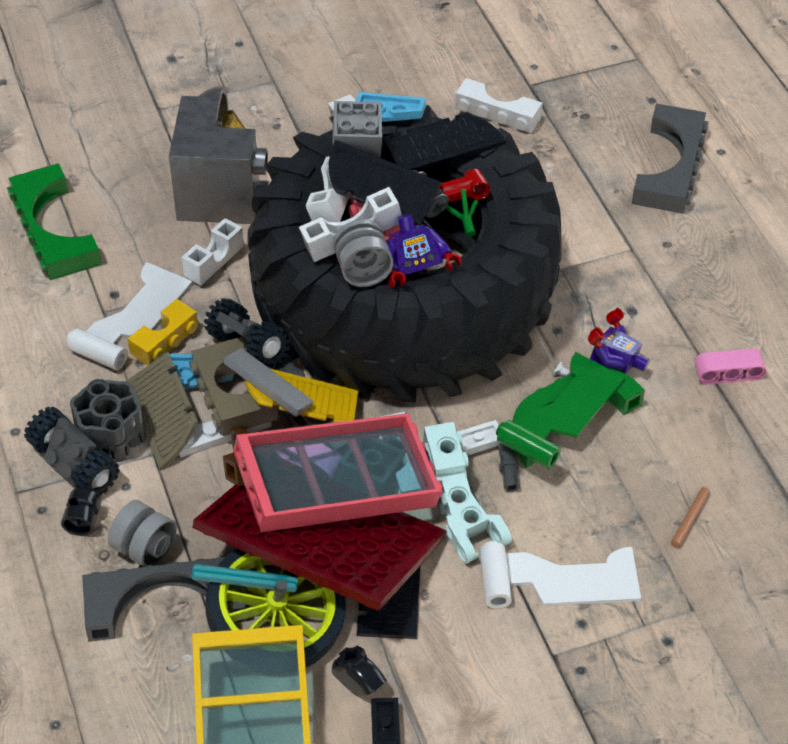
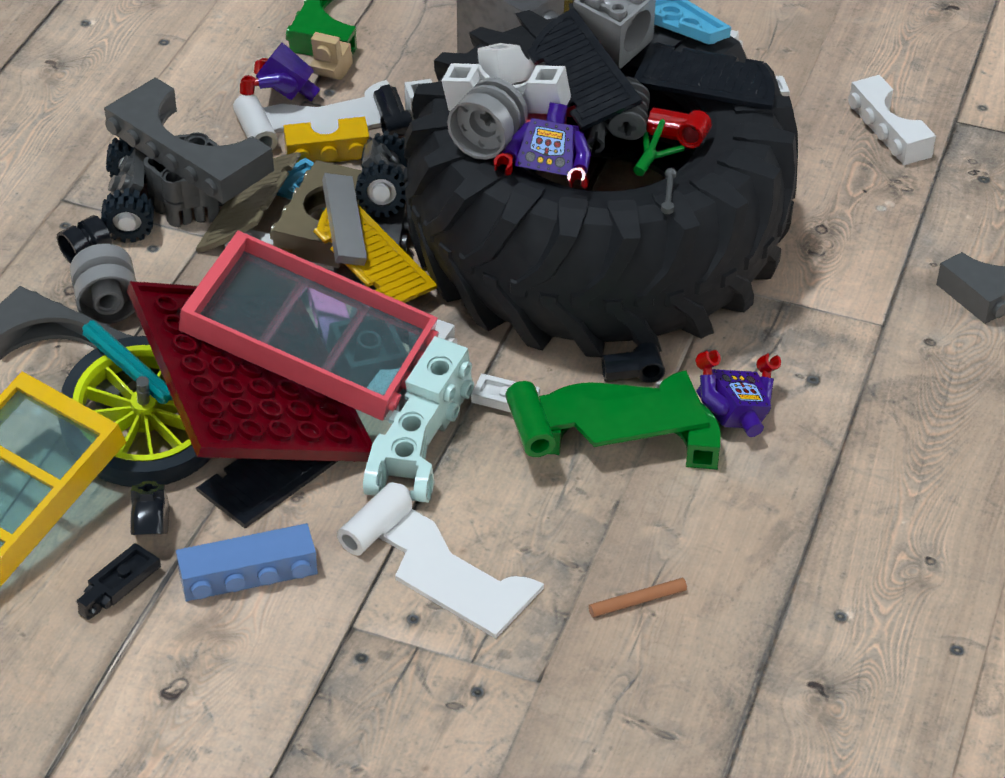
camera: 40 degrees right, 5 degrees down
(80, 299) = (282, 72): none -> dark purple torso
(98, 267) = (330, 56): none -> tan brick
(145, 401) = (214, 169): none -> dark grey arch
(191, 288) = (391, 110): none -> black piece
(453, 660) = (246, 562): none -> medium blue brick
(508, 467) = (504, 438): dark grey pin -> none
(523, 248) = (668, 207): none -> dark grey hinge
(531, 364) = (642, 363): none -> black piece
(730, 366) = (851, 487): bright pink beam -> none

